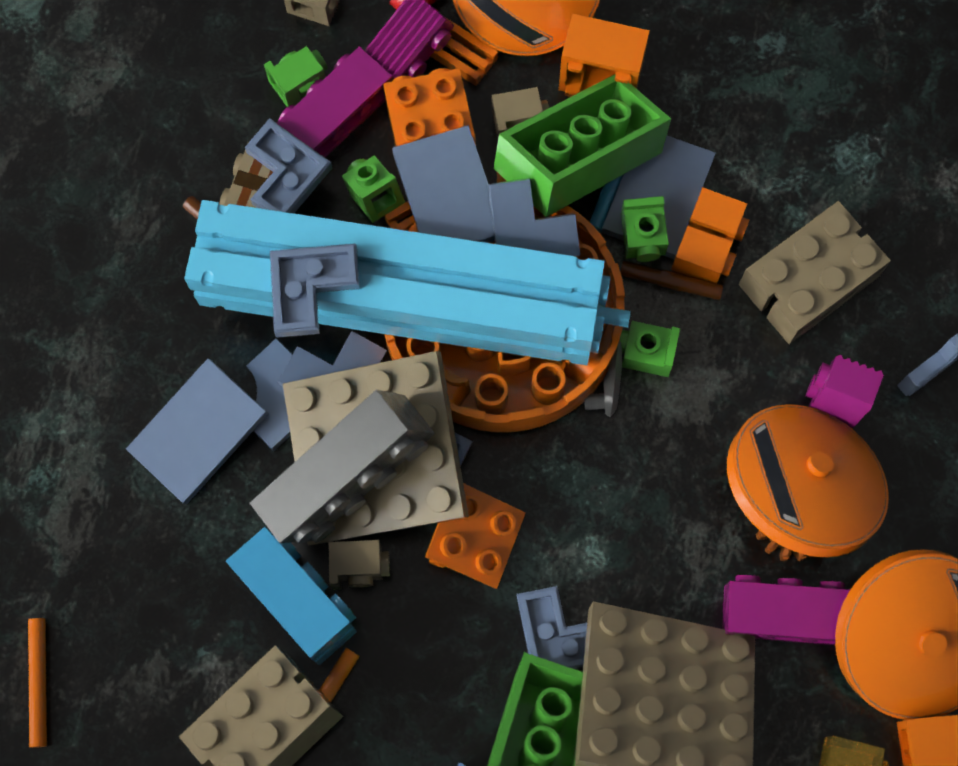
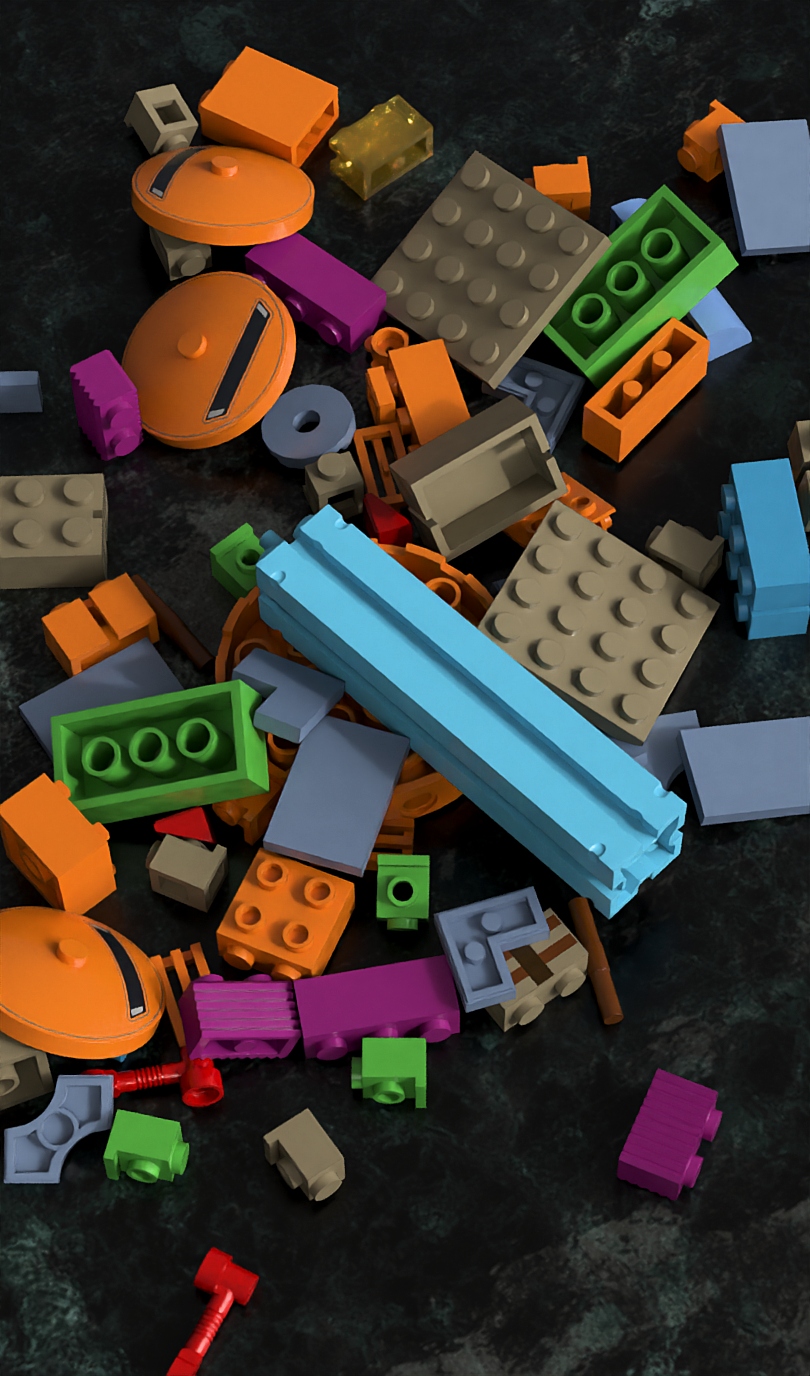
camera: 145 degrees left, 15 degrees down
(102, 145) = (668, 1134): none -> magenta brick
(302, 274) = (564, 725): sand blue tile -> none
(343, 468) = (643, 582): brick -> none
(475, 683) = (645, 389): none -> orange brick
(535, 503) = (478, 478): none -> dark tan piece
(583, 442) = (385, 522): none -> red slope
(619, 559) = (425, 392): none -> orange brick
(634, 488) = (375, 434): none -> orange tile
(641, 448) = (332, 476): none -> dark tan brick
(644, 213) = (161, 661): bright green brick -> none
(665, 546) = (380, 396): none -> orange tile
(681, 503) = (303, 406): none -> sand blue tile
(694, 589) = (383, 341): none -> orange plate

